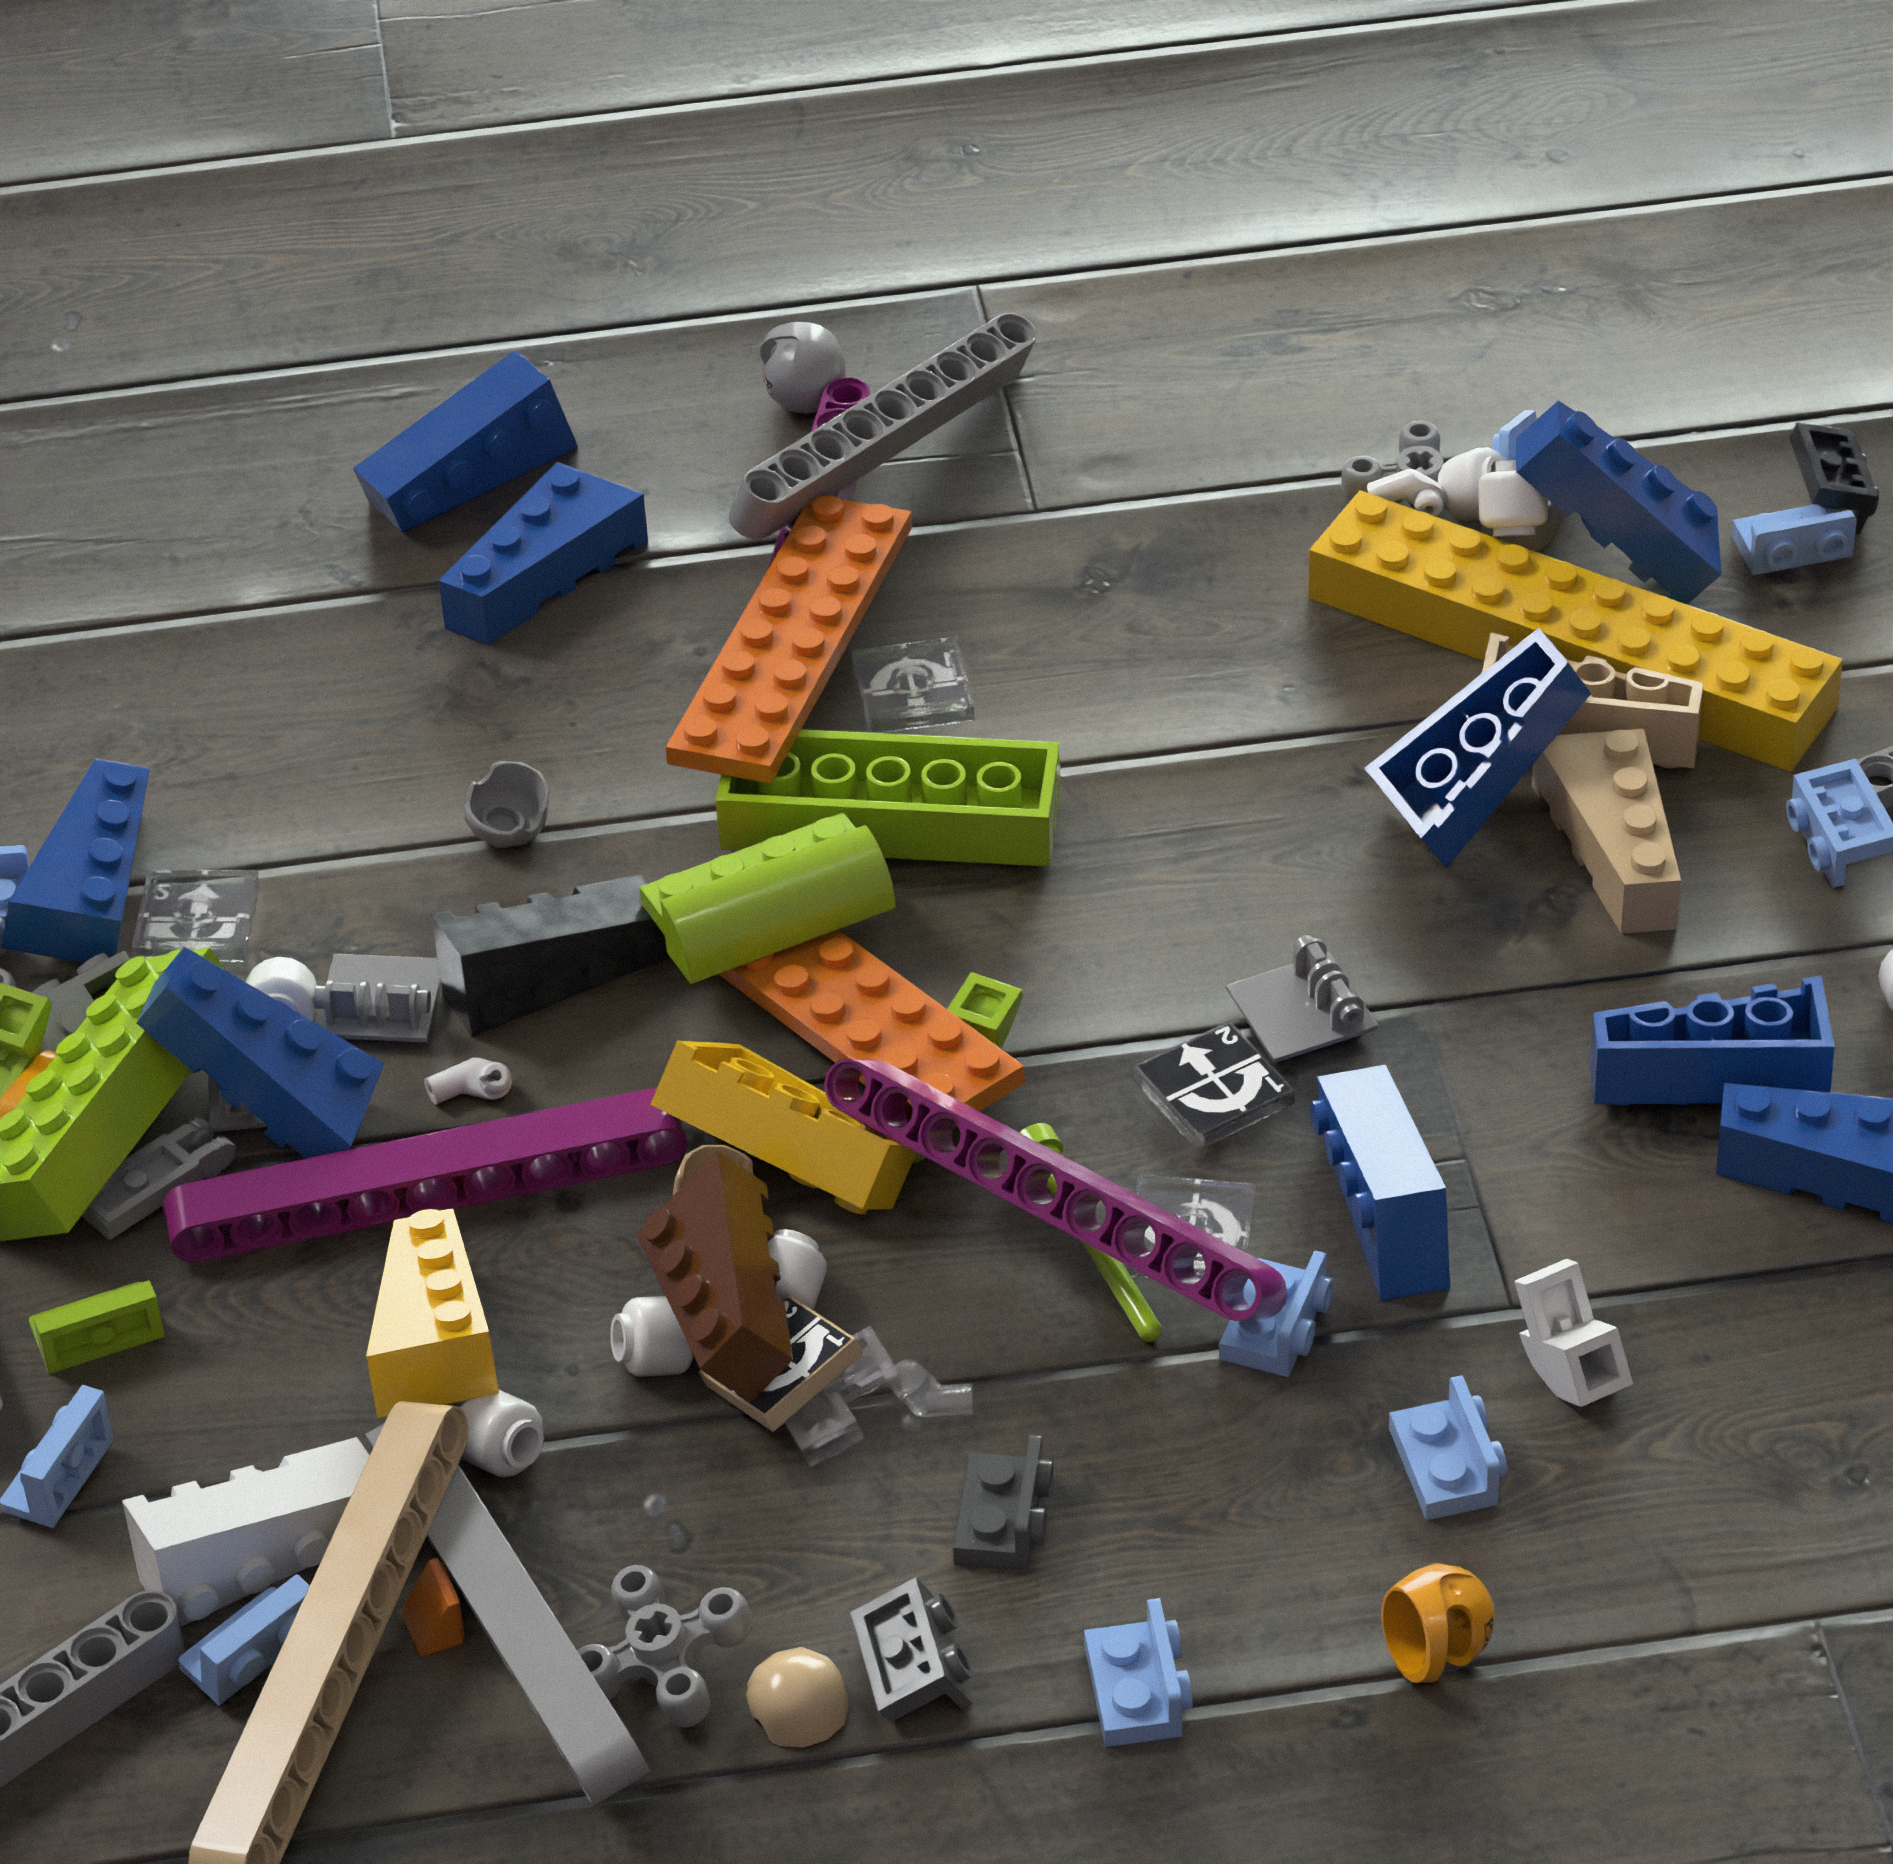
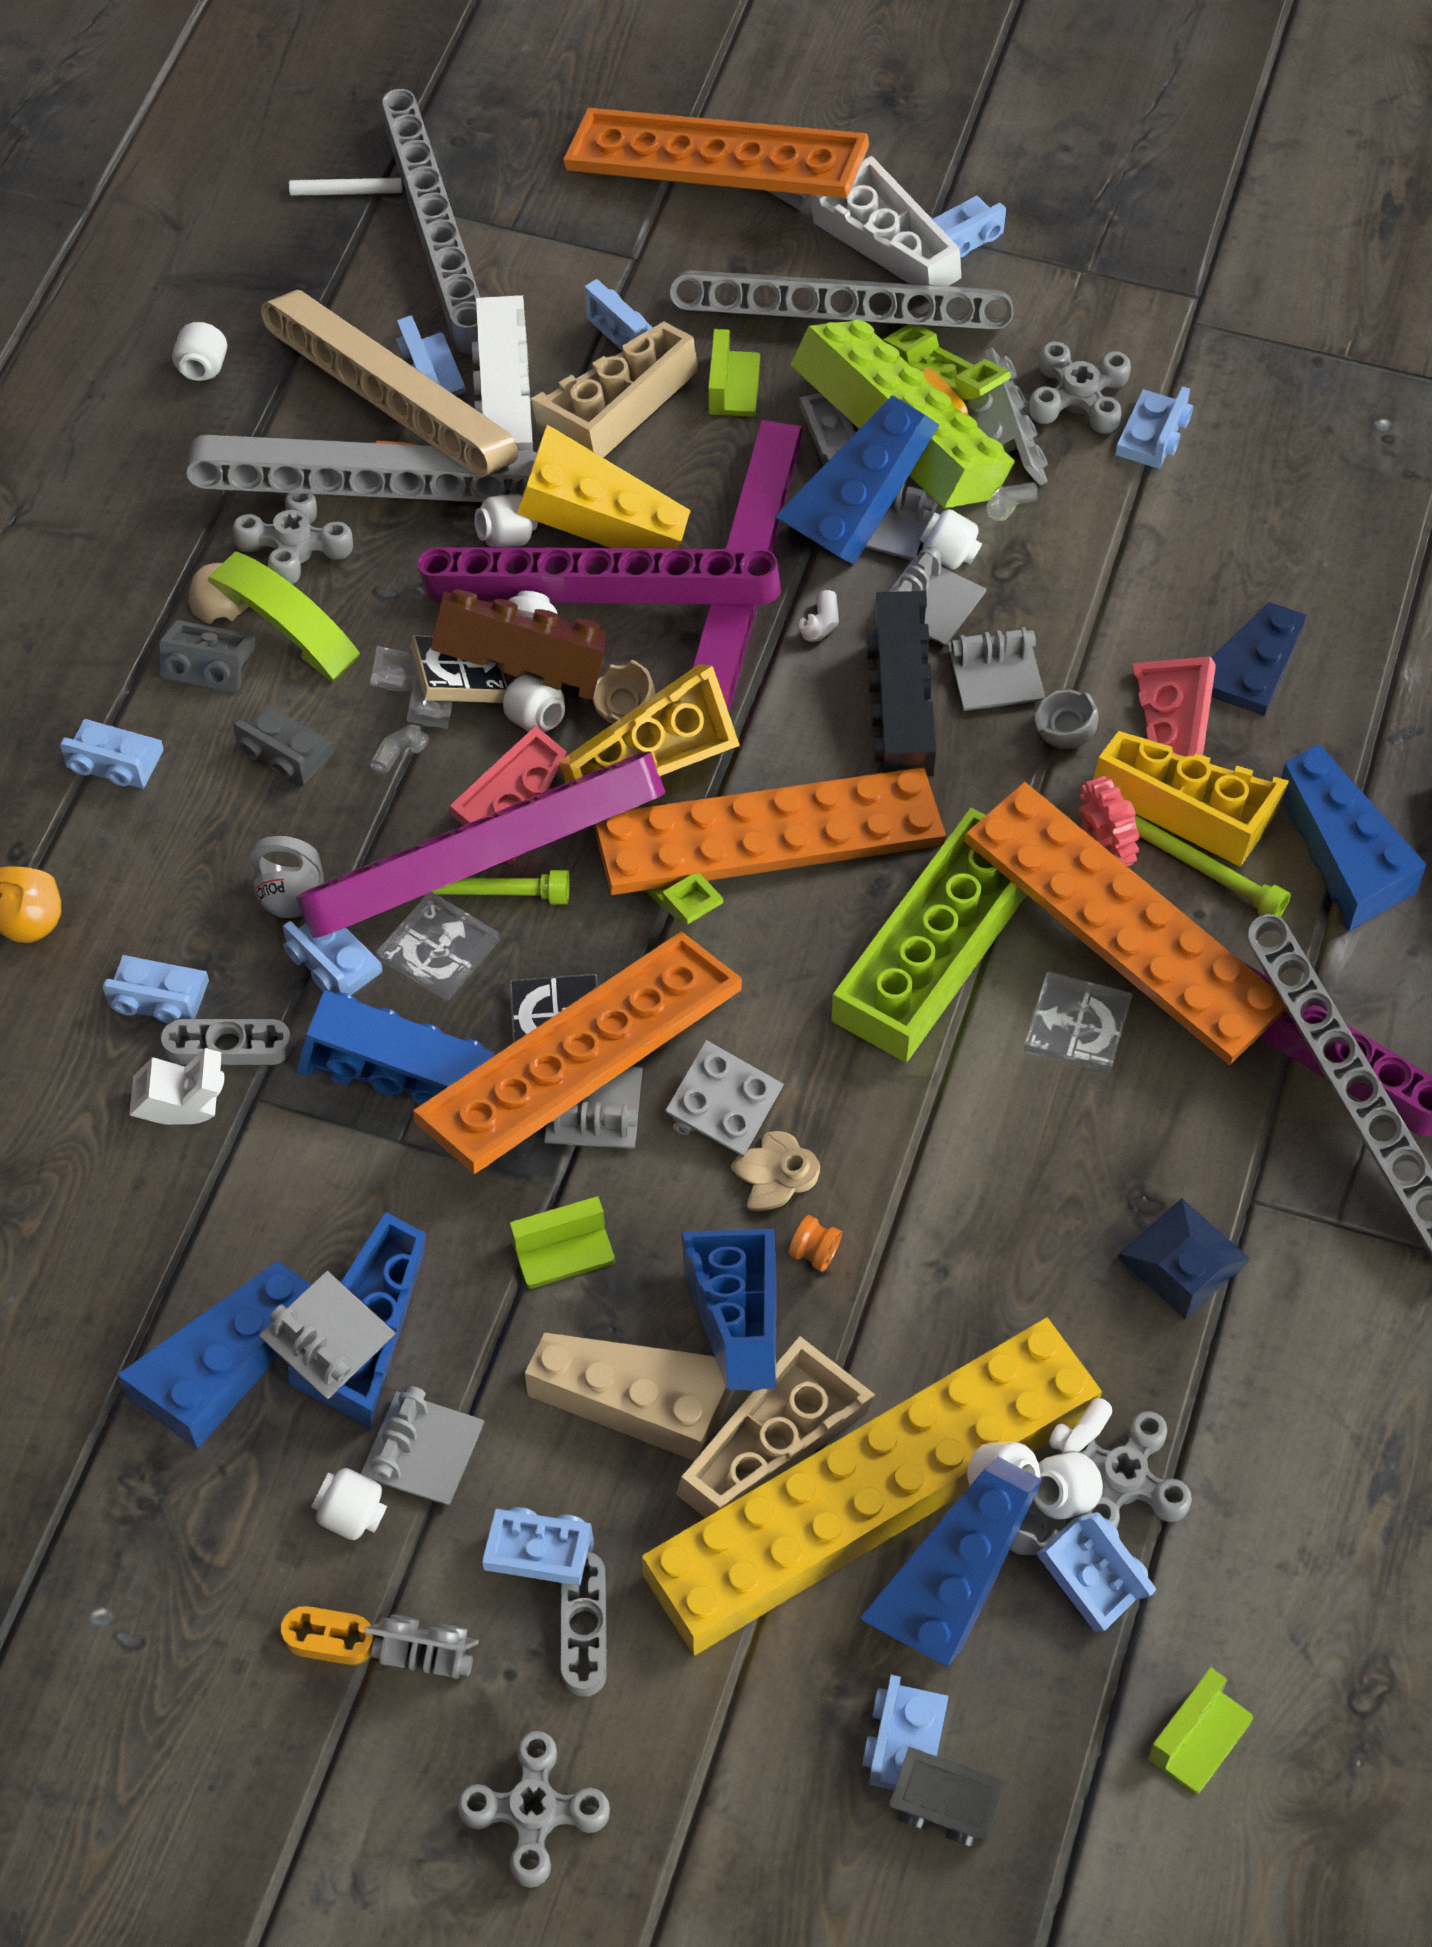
camera: 115 degrees right, 15 degrees up
(80, 878) = (1132, 475): blue wedge -> none
(197, 912) = (1072, 534): clear tile -> none
(204, 1395) = (619, 390): none -> tan wedge
(314, 705) = (1256, 658): none -> dark blue wing
(439, 729) = (1177, 701): none -> coral wing
(451, 888) = (996, 669): none -> light grey hinge
(523, 1199) = (605, 574): none -> magenta beam
(566, 667) = (1192, 798): none -> yellow wedge
(651, 705) = (1109, 819): none -> coral gear
(657, 592) = (1265, 898): none -> lime piece
(770, 896) = (860, 804): lime brick -> none
(798, 1586) = (289, 611): none -> lime slope
(939, 1252) = (517, 776): none -> coral wing
(1148, 518) = (1183, 1258): none -> dark blue slope
(1213, 1378) = (278, 884): none -> light grey helmet
(1222, 892) = (723, 1099): none -> light grey hinge
(1266, 1001) = (576, 1052): none -> orange plate
(1271, 839) = (771, 1171): none -> tan plate
(1340, 765) = (815, 1243): none -> orange wheel
(1465, 1331) = (239, 1055): none -> light grey beam
(1487, 961) = (562, 1243): none -> lime panel
(1624, 372) = (1200, 1734): none -> lime panel
(1782, 1018) = (326, 1334): none -> light grey hinge
(1808, 952) = (422, 1447): none -> light grey hinge

